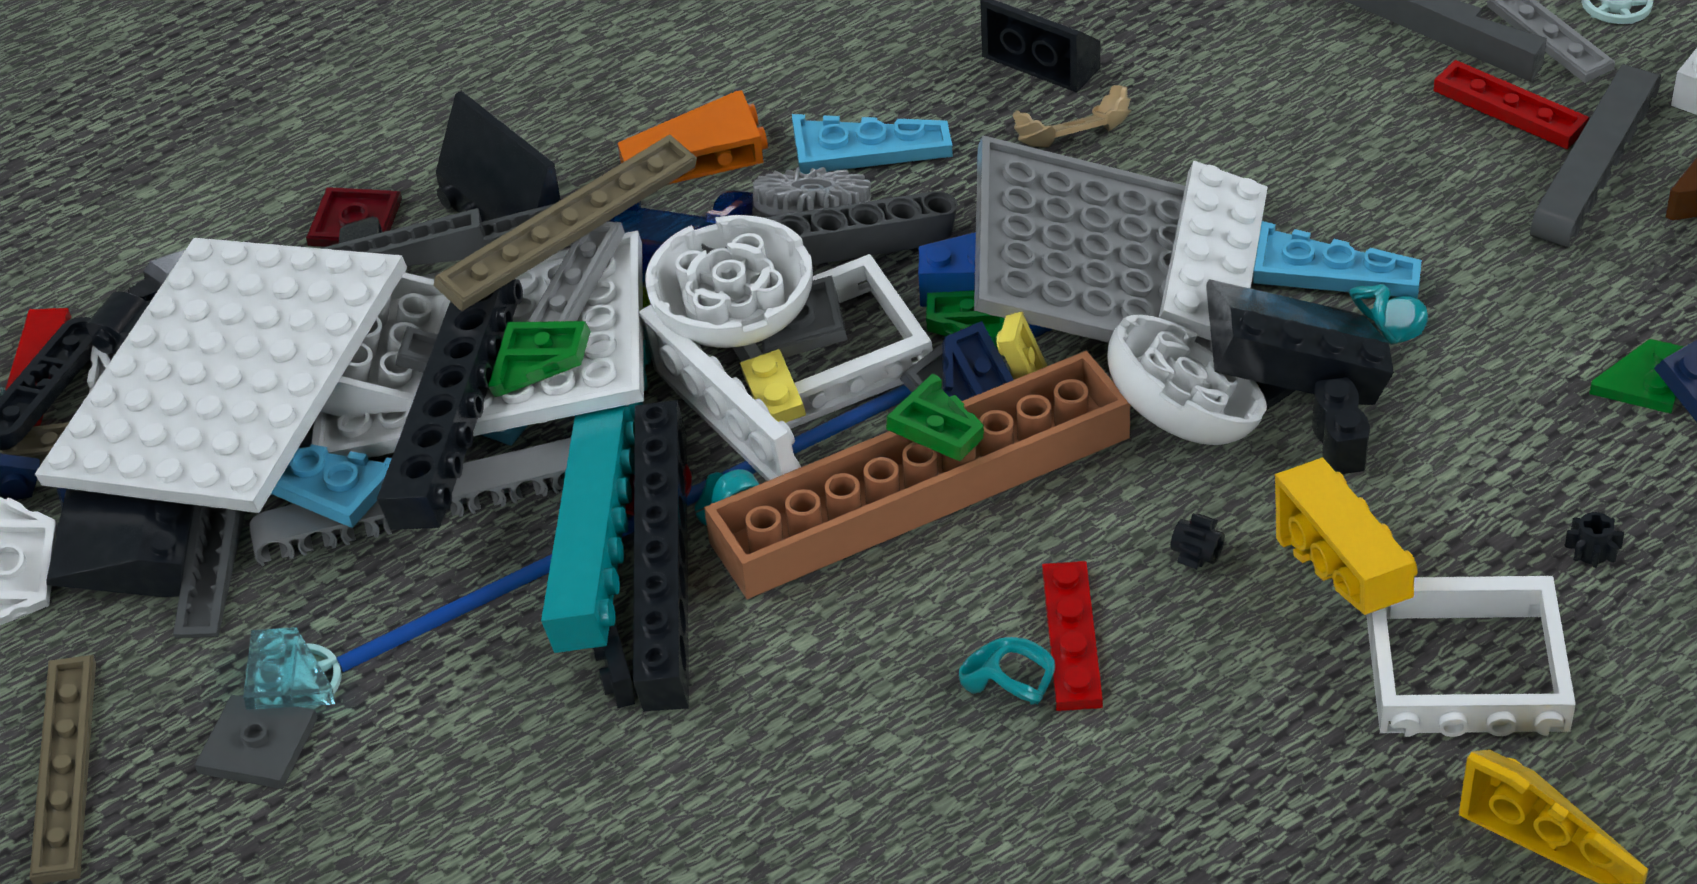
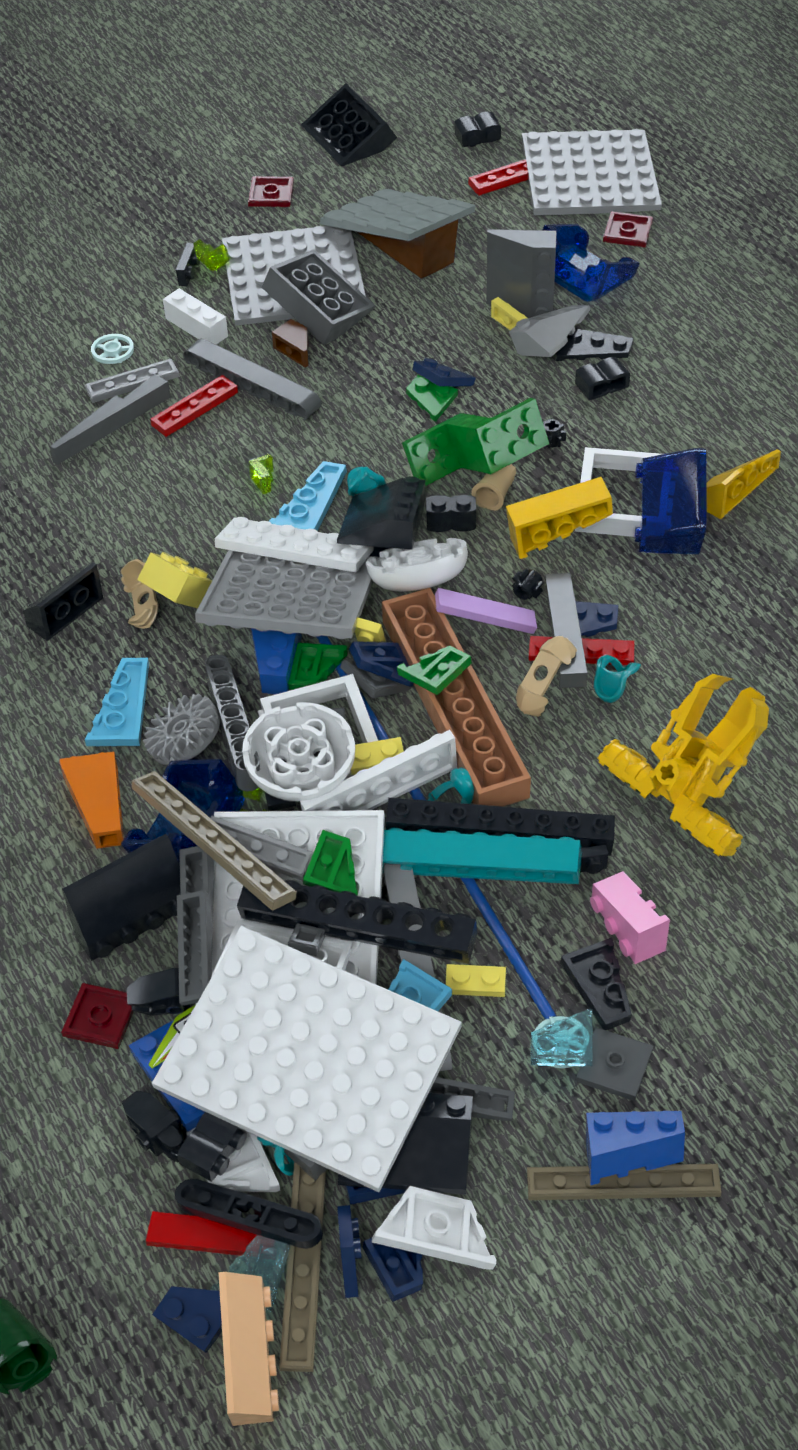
camera: 85 degrees left, 5 degrees up
(102, 748) = (632, 1141): none -> blue wedge
(393, 708) = (598, 981): none -> black wing
(403, 571) = (476, 980): none -> light yellow plate
(501, 725) = (630, 918): none -> bright pink wedge
(780, 762) = (695, 762): none -> yellow piece
(993, 558) = (531, 691): none -> tan piece
(1083, 588) = (565, 623): none -> slope
(1092, 126) = (175, 579): none -> light yellow brick
(1109, 486) = (485, 611): none -> lavender tile
(1146, 637) = (596, 617): none -> dark blue wing
(1369, 194) = (261, 472): none -> clear neon green bracket
(1432, 699) = (673, 502): none -> clear blue windscreen
(1433, 475) = (493, 488): none -> tan plant
(1490, 416) = (476, 442): none -> green bracket

